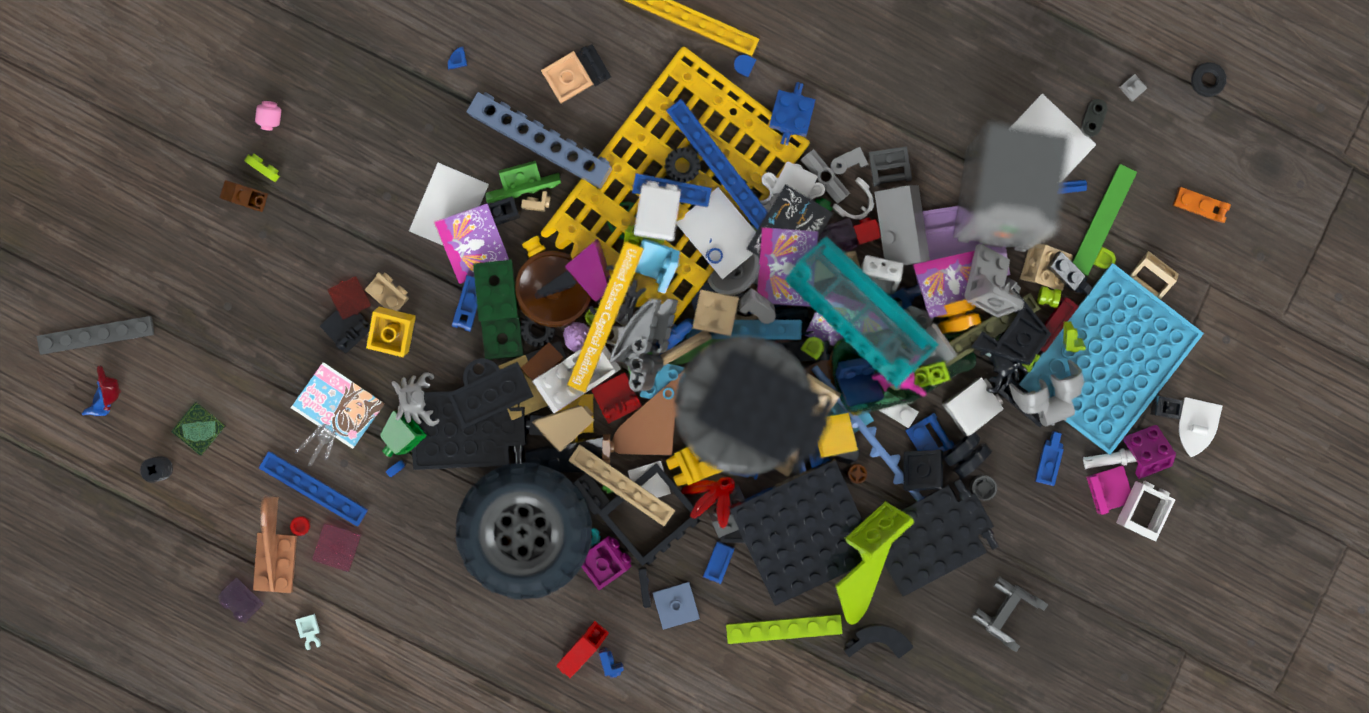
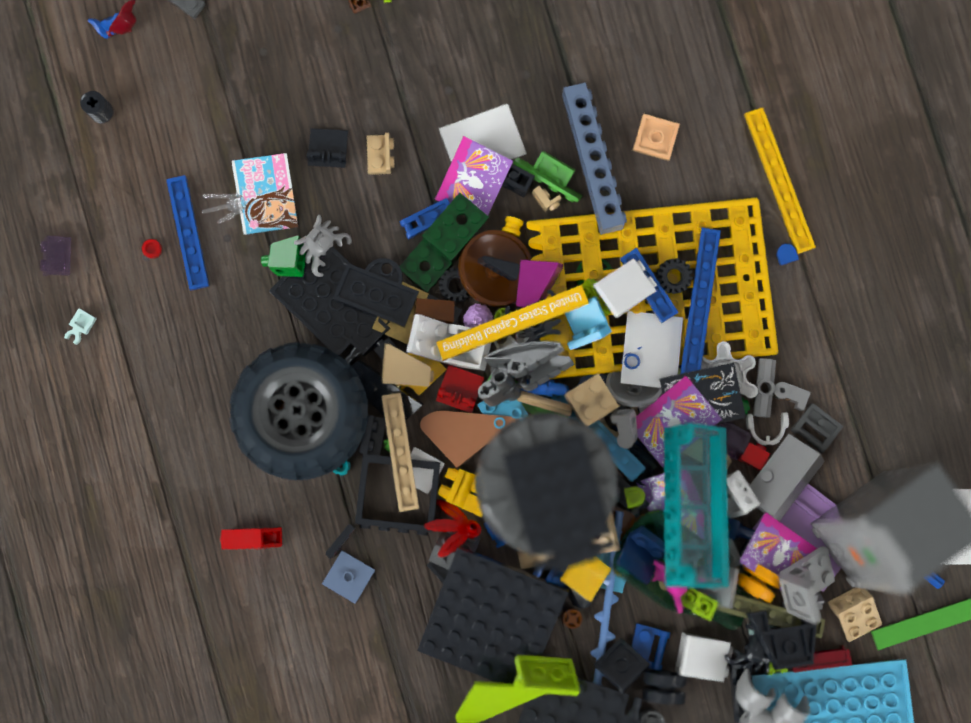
camera: 45 degrees right, 5 degrees down
(198, 428) = (155, 111): clear green tile -> none
(273, 553) = (115, 247): nougat piece -> none
(336, 547) = (160, 289): clear pink plate -> none
(349, 297) = (350, 130): clear red piece -> none
(391, 331) = (354, 181): yellow brick -> none
(395, 468) = (258, 277): blue tile -> none
(457, 59) = (594, 48): blue tile -> none
(593, 65) = (682, 147): black hinge -> none
(606, 562) = (332, 494): magenta plate -> none
(607, 447) = (418, 416): medium nougat plate -> none
(607, 663) = (259, 565): blue bracket -> none
(718, 562) = (410, 578): blue tile -> none
(784, 629) = (406, 674): lime plate -> none
(792, 113) = (786, 320): blue plate -> none
(795, 178) = (744, 367): white sticker -> none
(903, 414) = (646, 608): white plate -> none
(1049, 297) = (836, 636): lime wheel -> none
(1069, 274) = (867, 635): hinge -> none
(1070, 338) = (823, 681): lime bracket -> none
(1104, 258) = (902, 651): lime tile -> none
(1160, 269) = (935, 699): tan tile -> none

